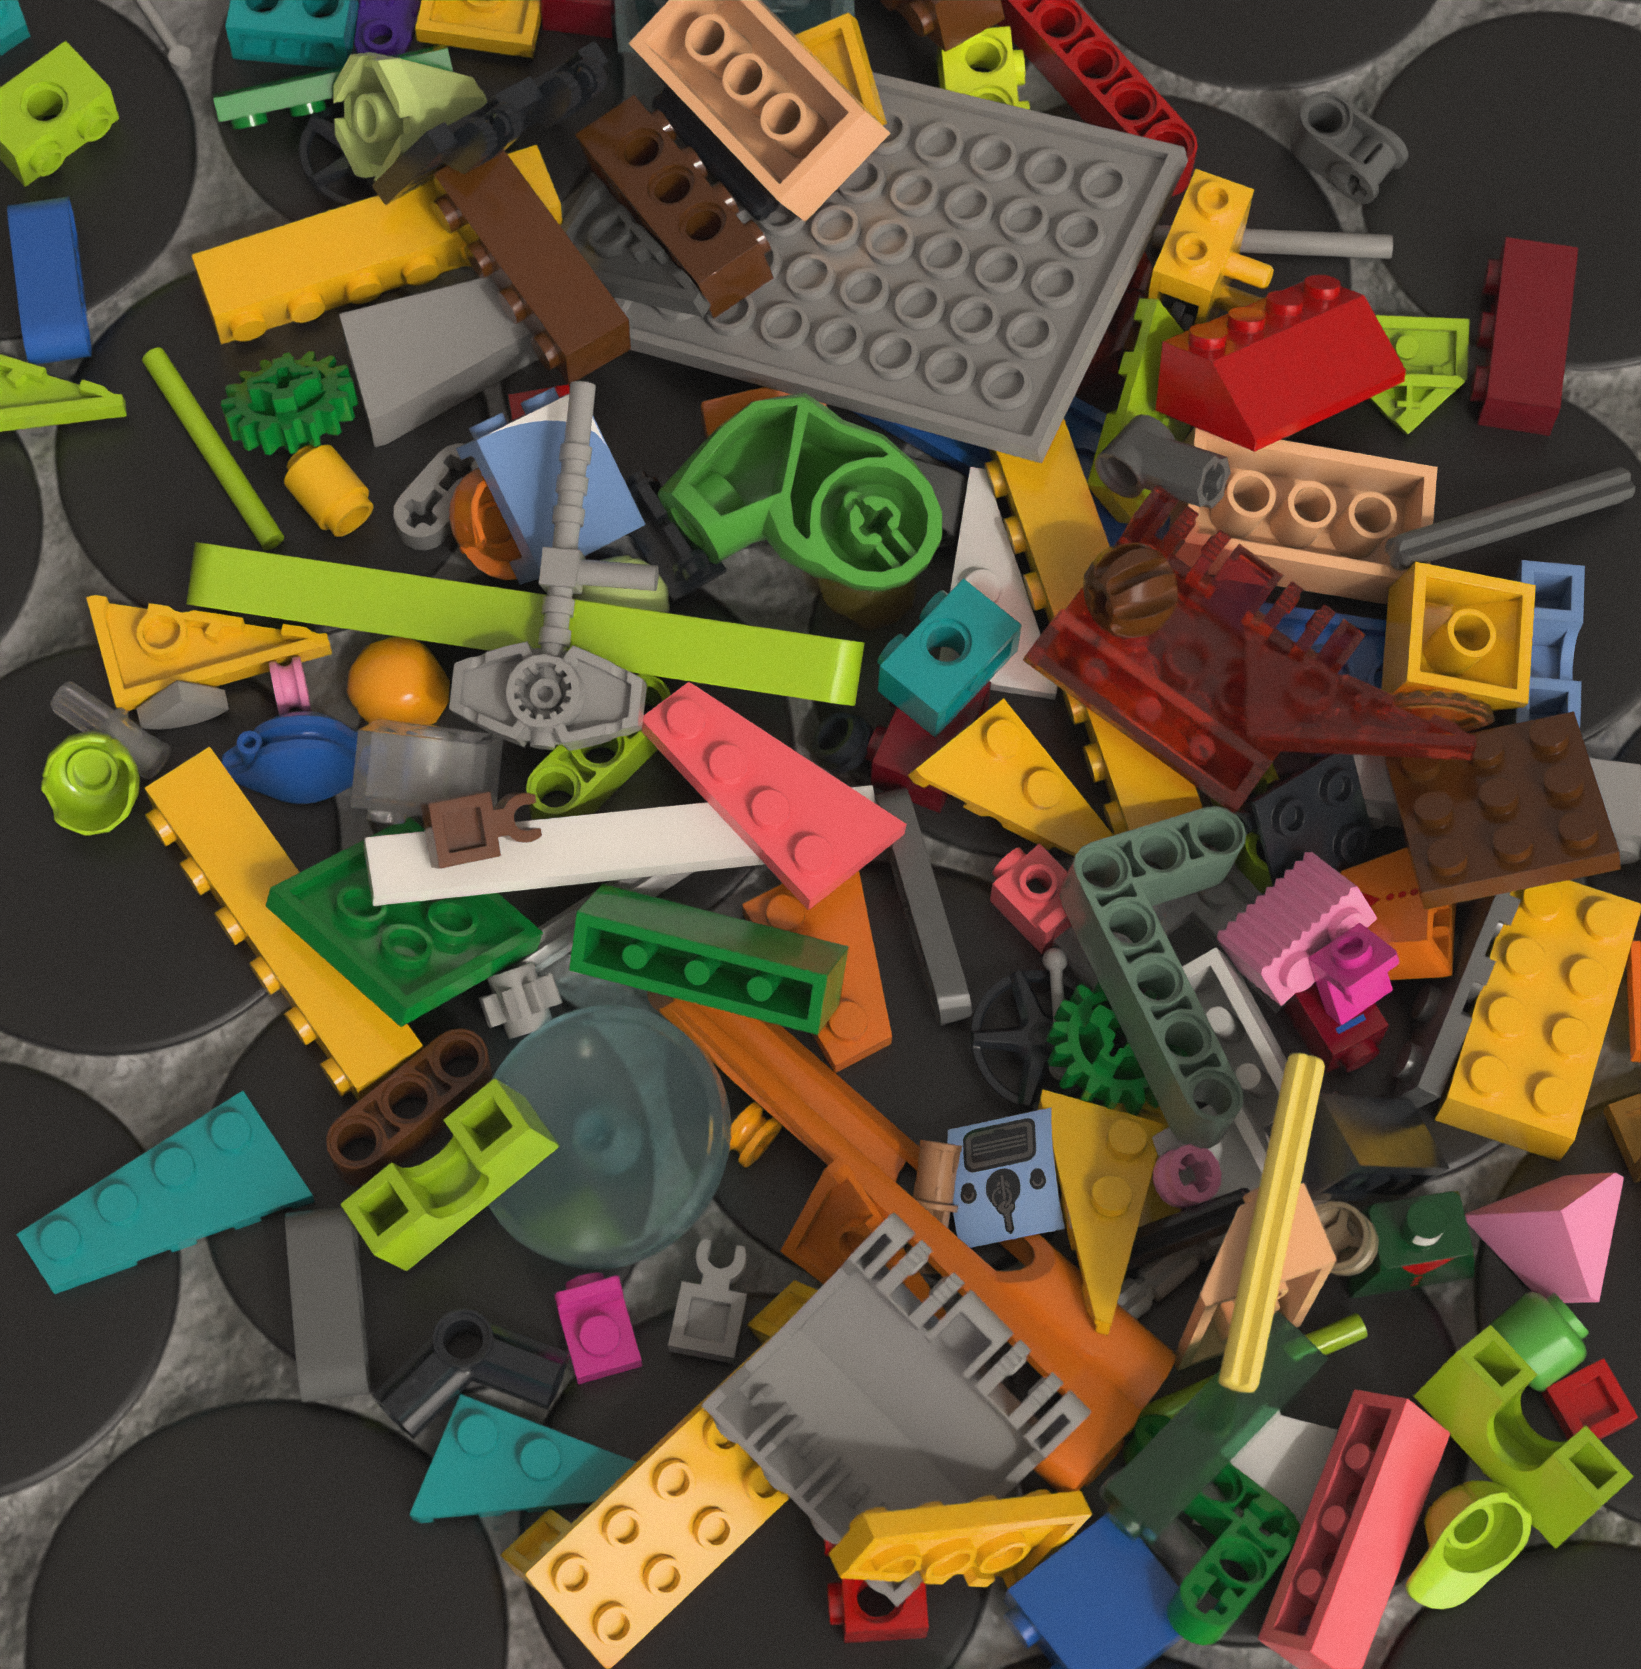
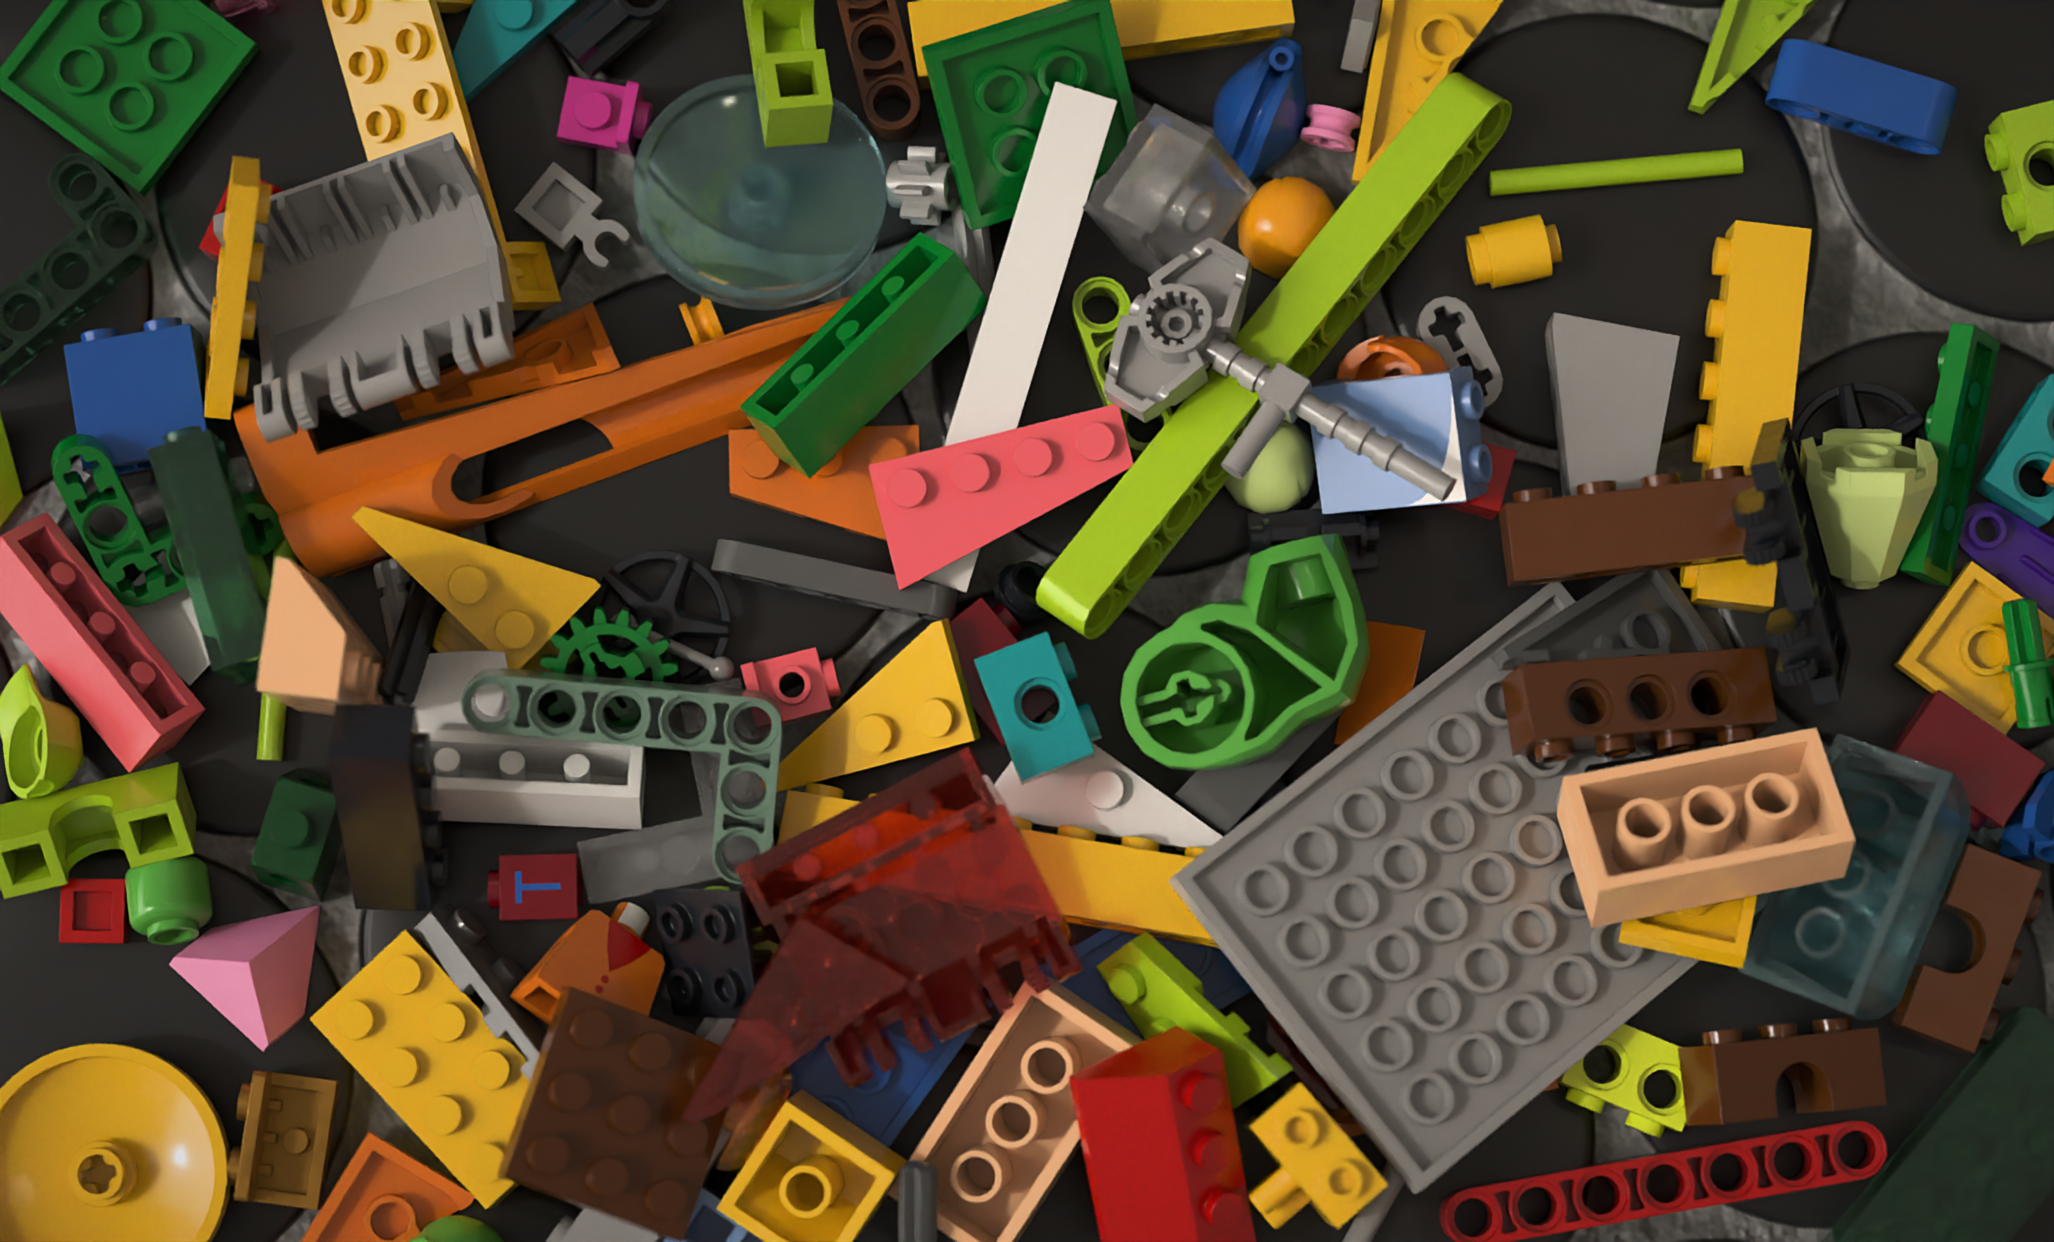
camera: 120 degrees right, 15 degrees up
(289, 403) = (1615, 253): green gear -> none
(468, 826) = (1075, 189): reddish brown plate -> none
(936, 1183) = (571, 454): medium nougat axle -> none
(1006, 1179) = (546, 514): sticker -> none
(1130, 590) = (990, 885): reddish brown piece -> none
(1150, 455) = (1119, 985): dark grey piece -> none
(1168, 1182) = (443, 679): bright pink bush -> none
(1271, 1223) = (312, 648): light yellow axle -> none
(1291, 924) = (619, 880): bright pink brick -> none
(1336, 1219) = (308, 735): dark tan wheel -> none
(1353, 972) = (548, 899): dark pink bracket -> none

